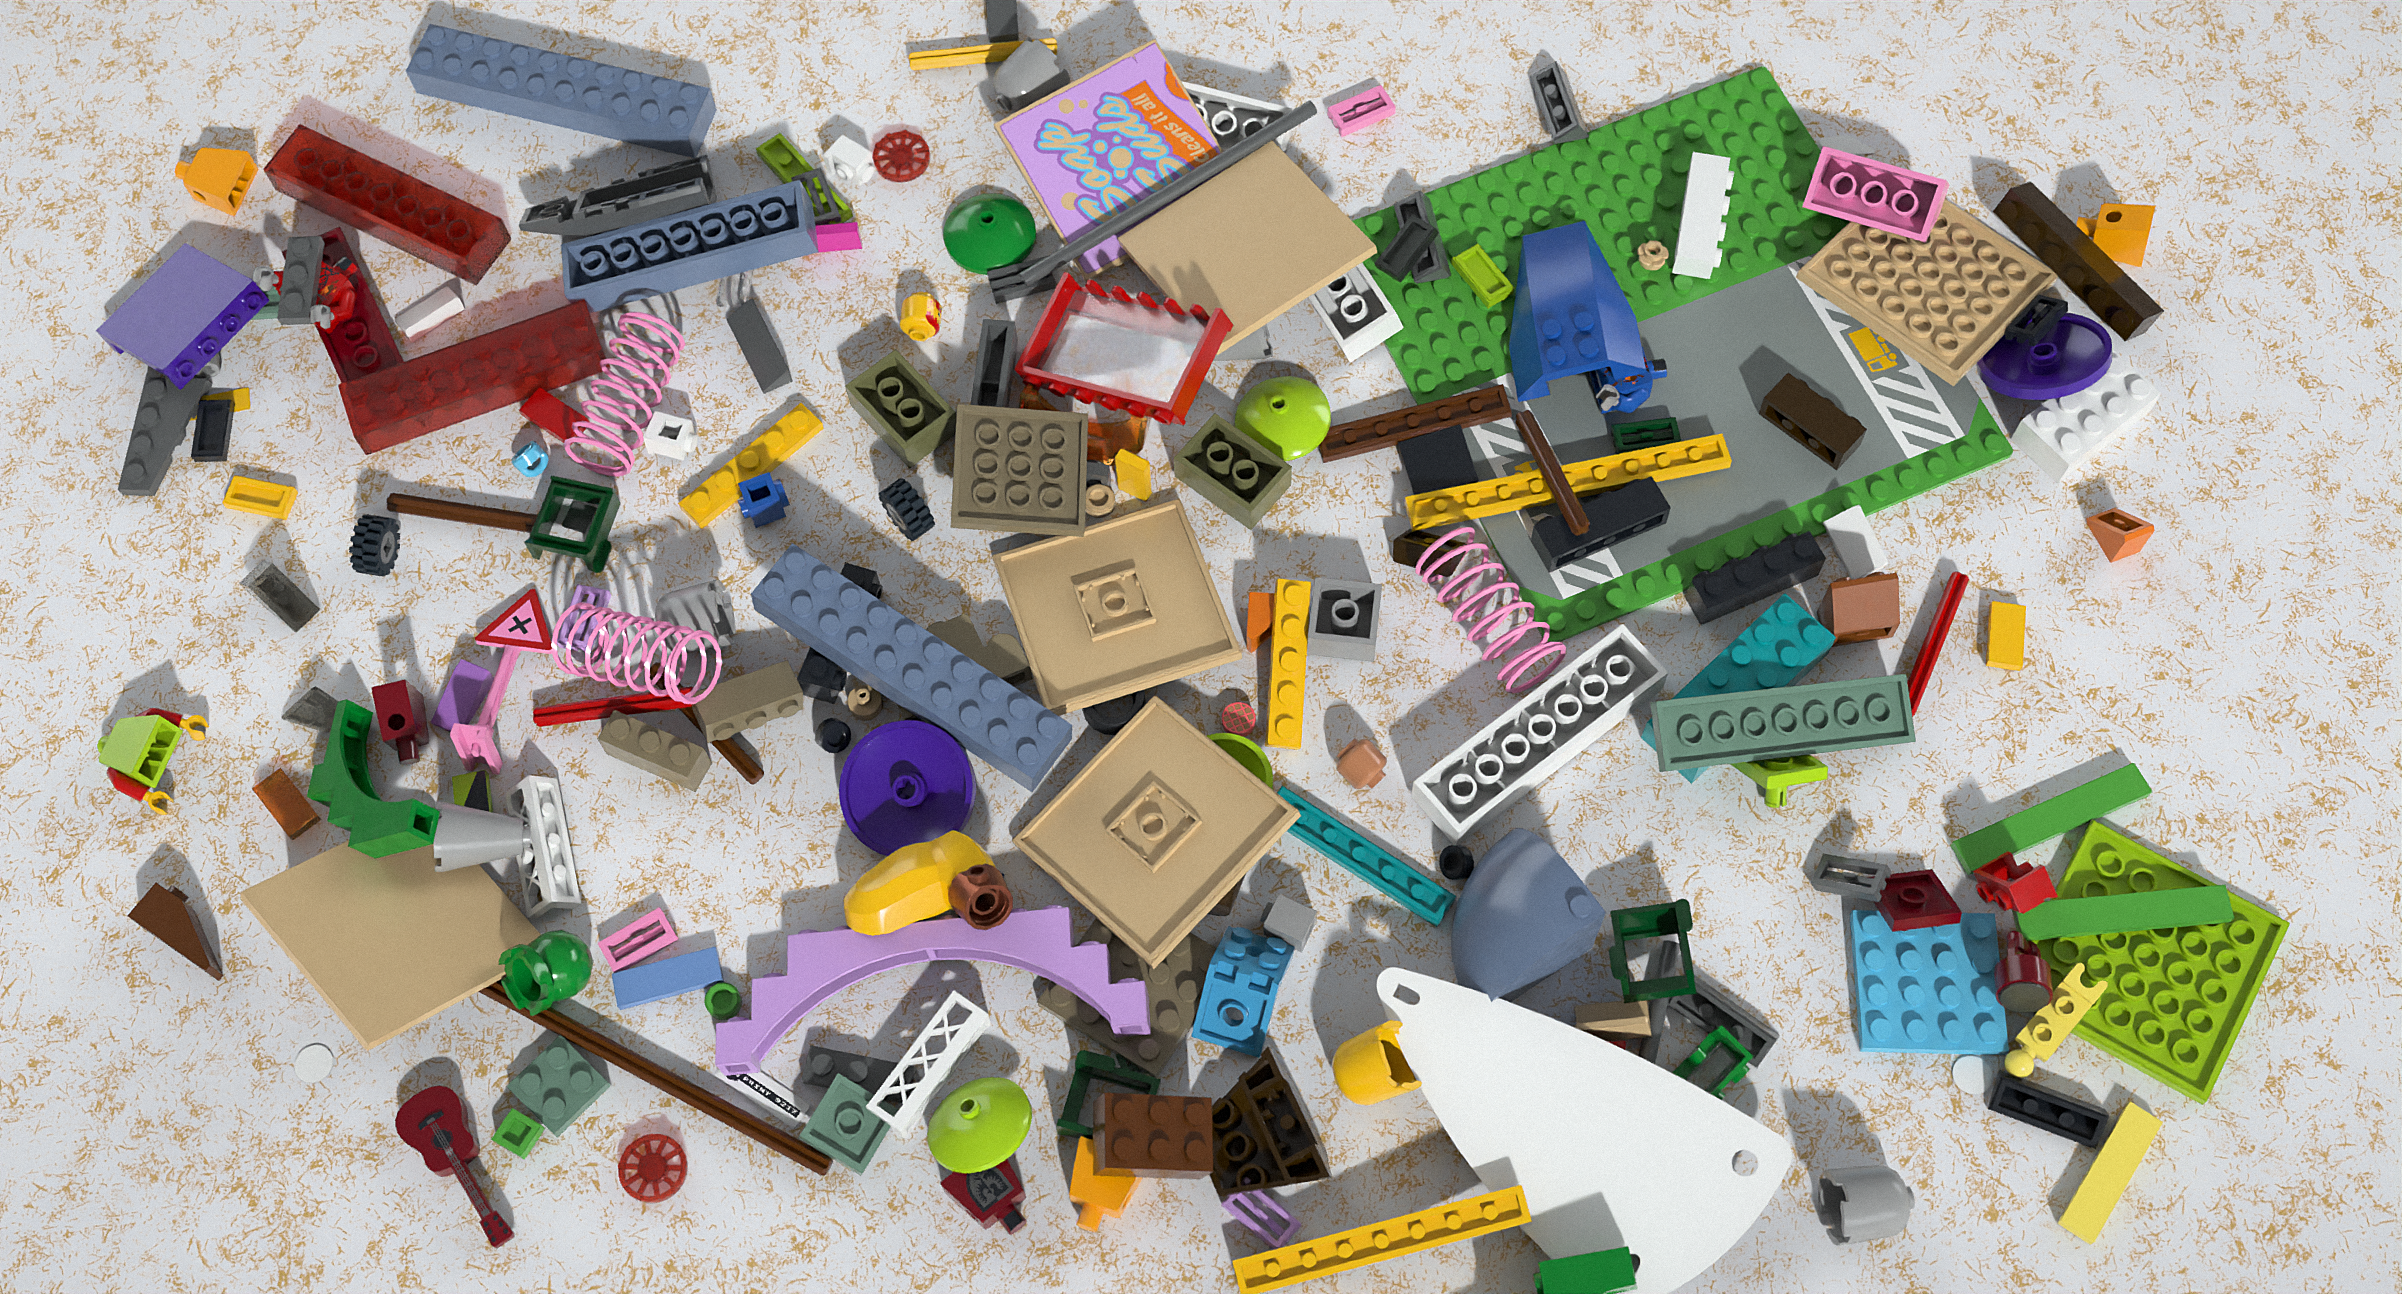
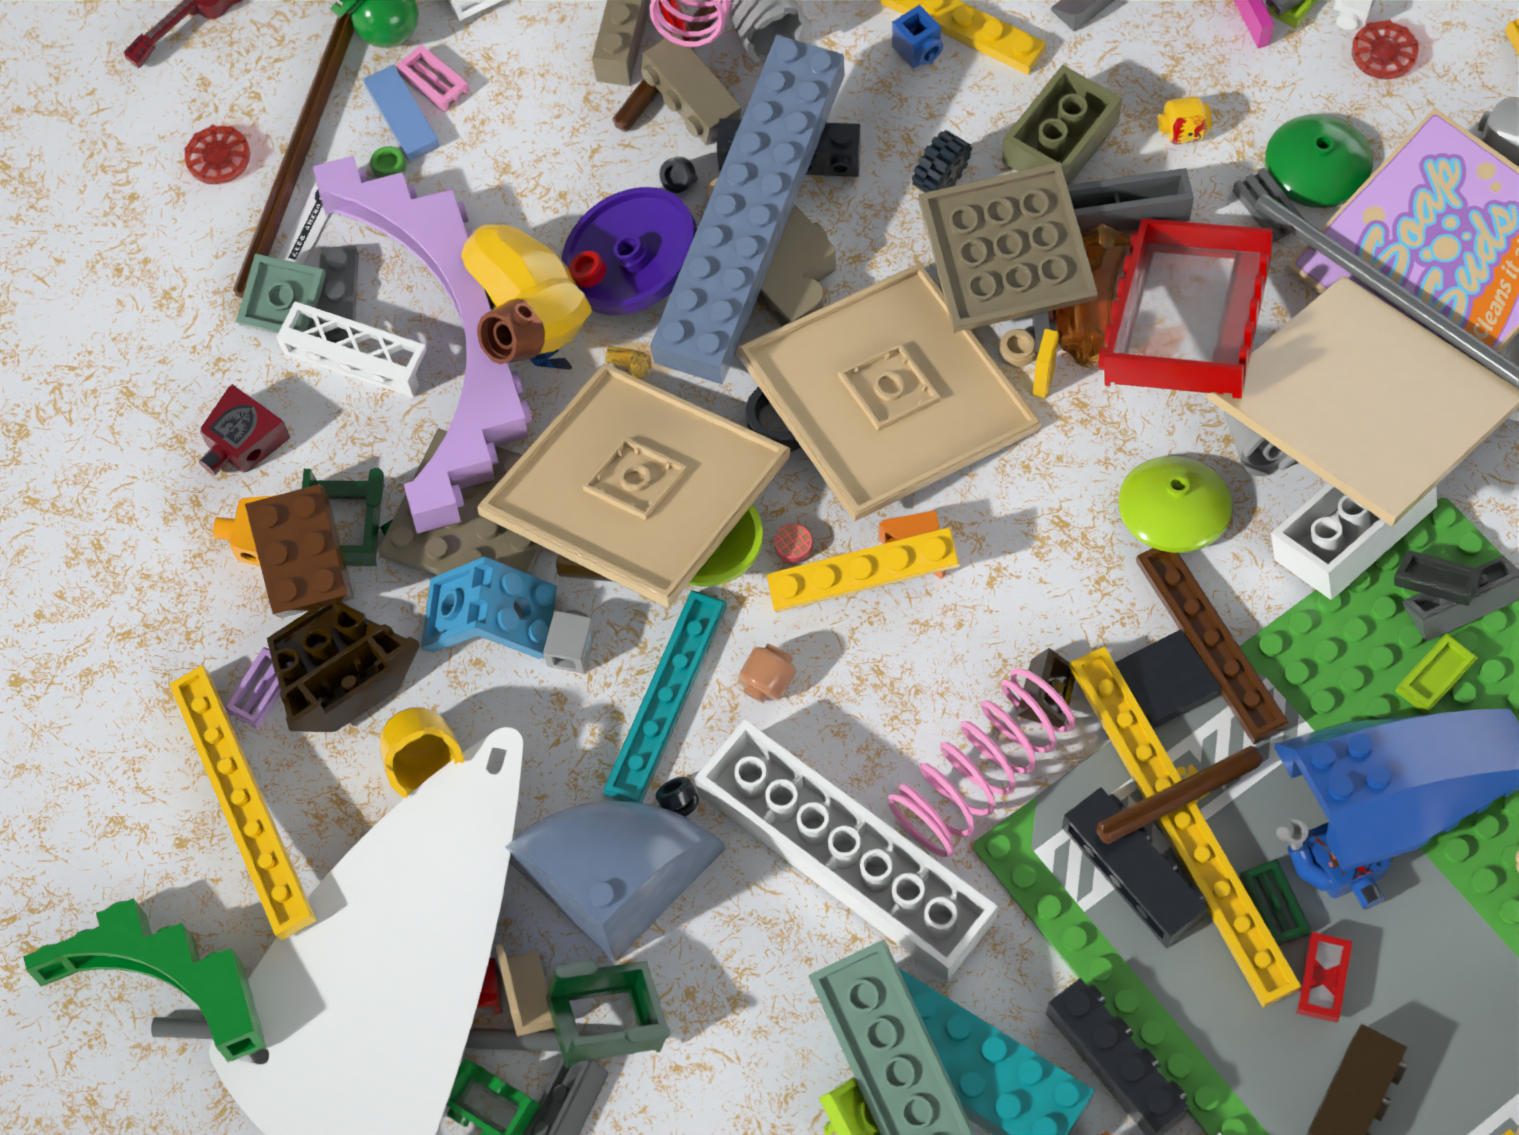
camera: 80 degrees right, 0 degrees up
(518, 1133) = (228, 39): bright green plate -> none
(558, 1086) = (281, 58): sand green plate -> none
(916, 828) = (587, 269): none -> red tile
(979, 1124) = (298, 405): lime dish -> none
(1014, 815) = (636, 361): none -> clear yellow arm
(1232, 471) = (1083, 462): olive brick -> none
(1344, 619) = (932, 615): light grey brick -> none
(1715, 417) = (1324, 977): none -> red piece

